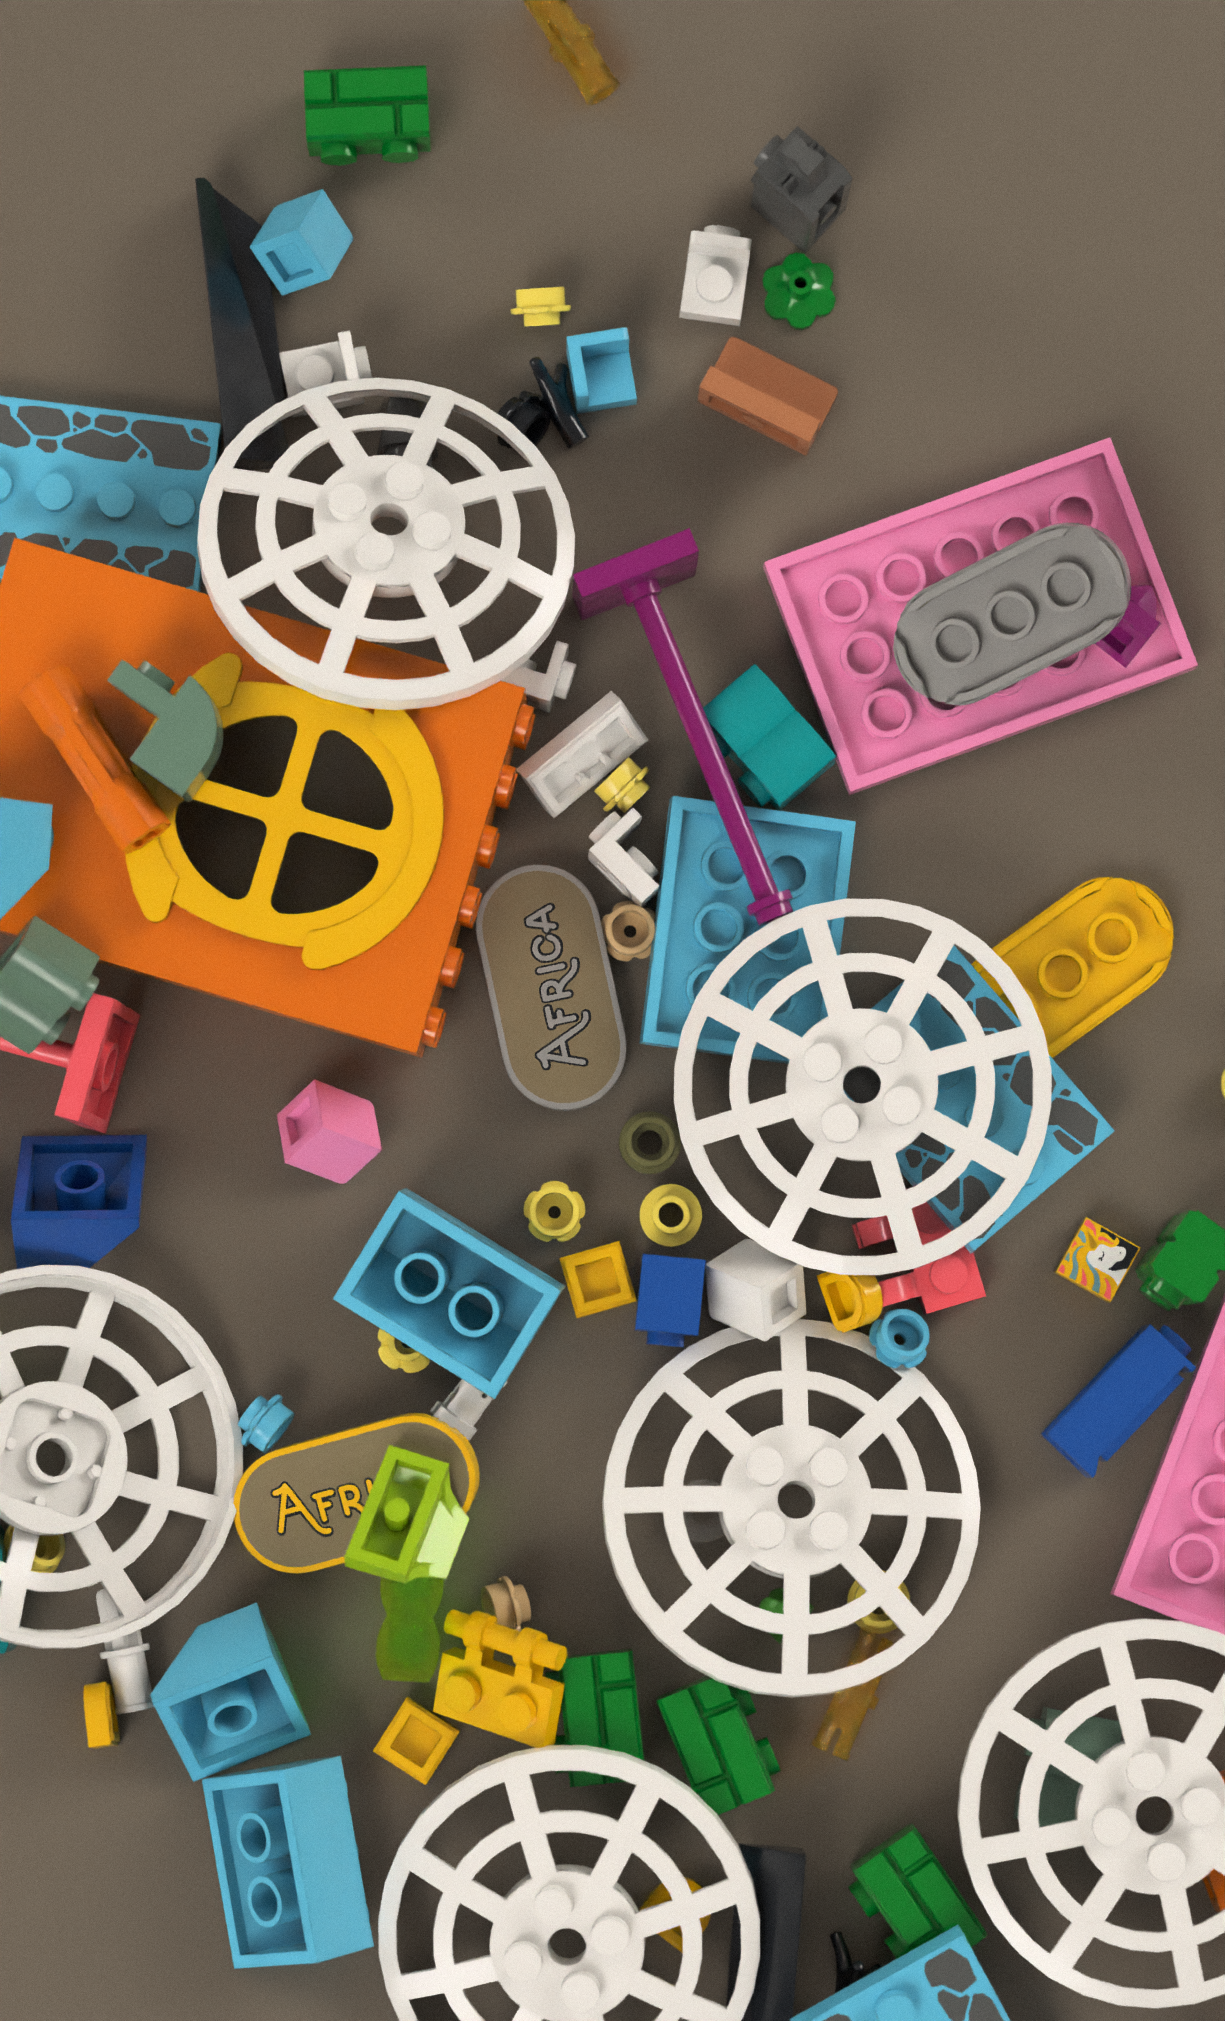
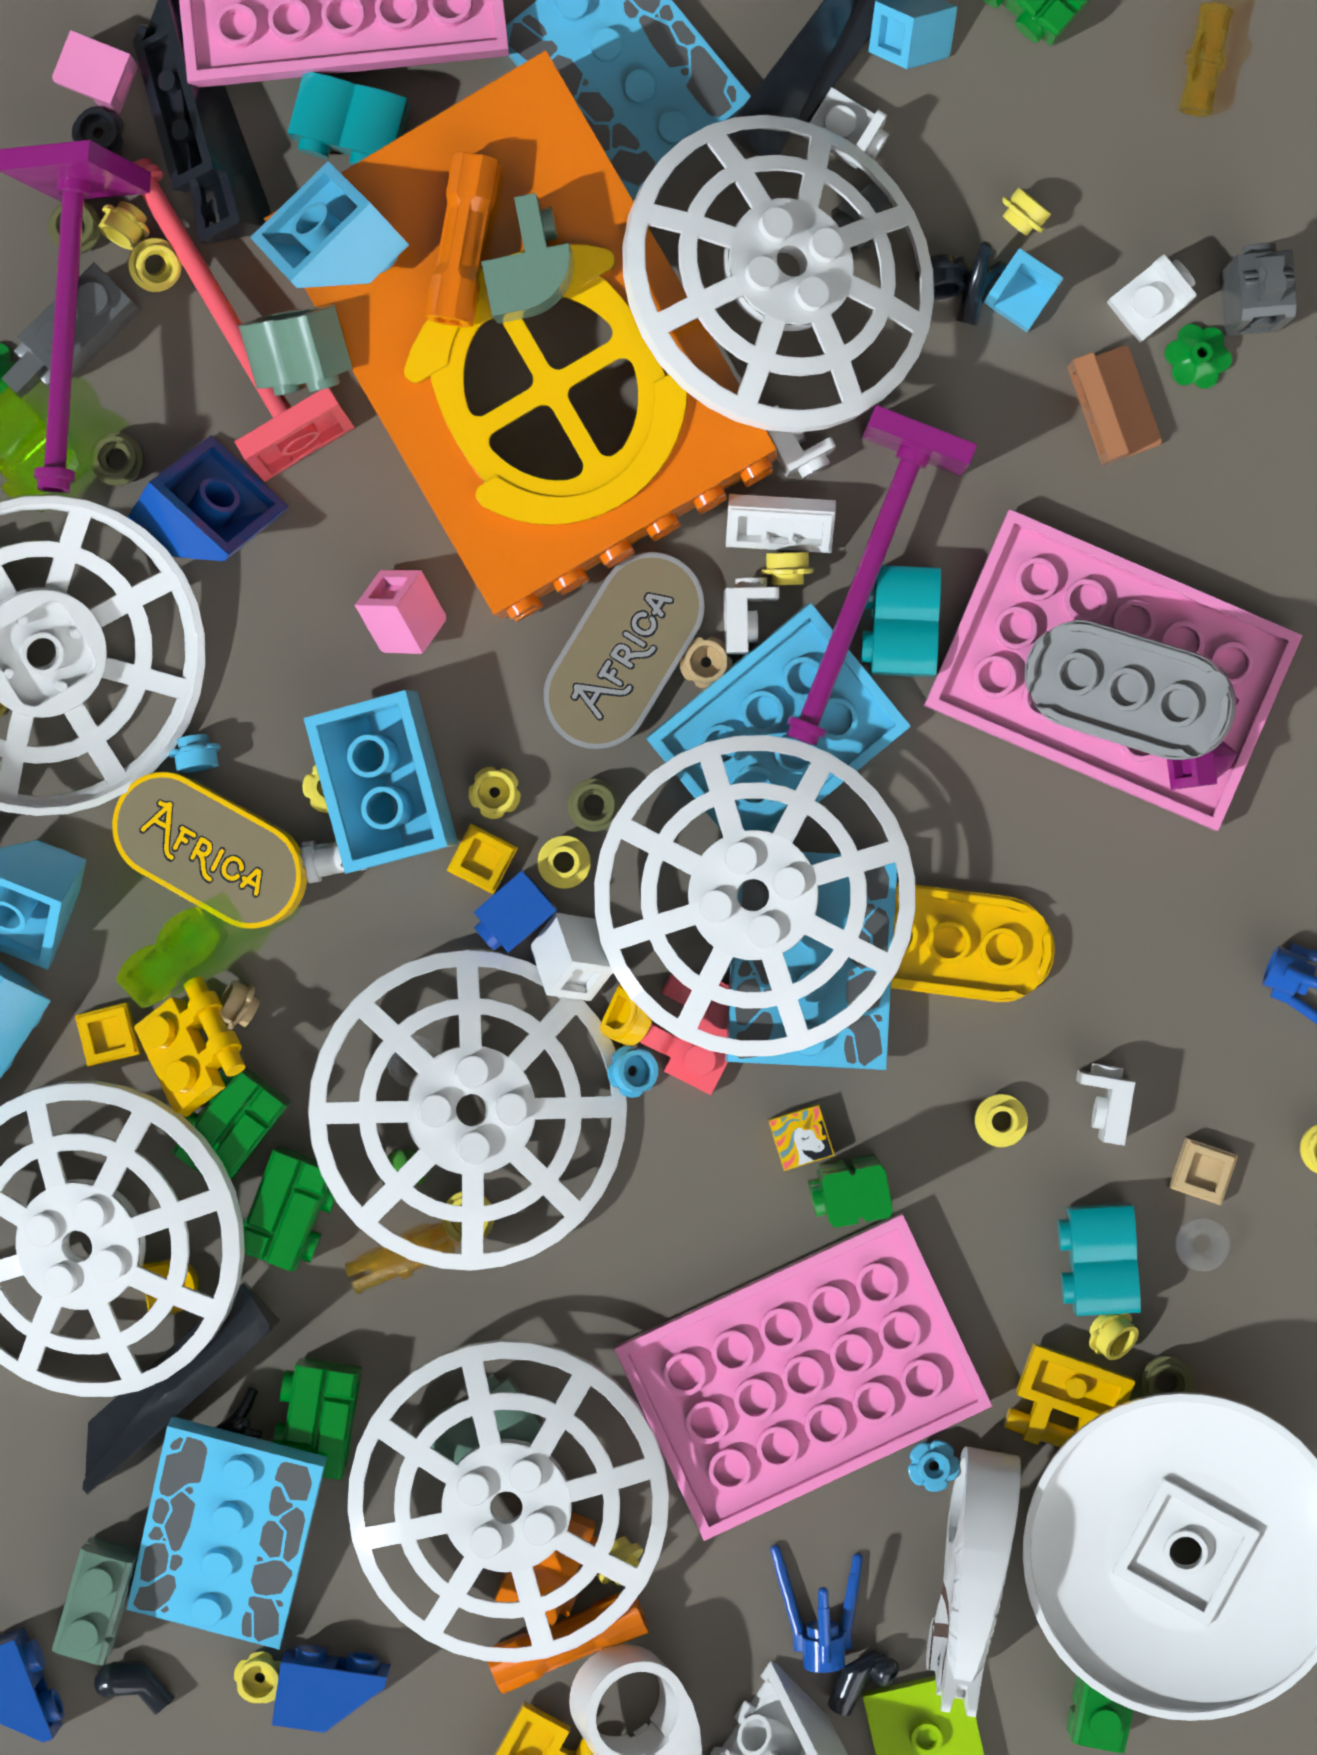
camera: 50 degrees right, 5 degrees up
(408, 1521) = (220, 899): lime slope -> none
(1119, 1398) = (733, 1234): blue window -> none

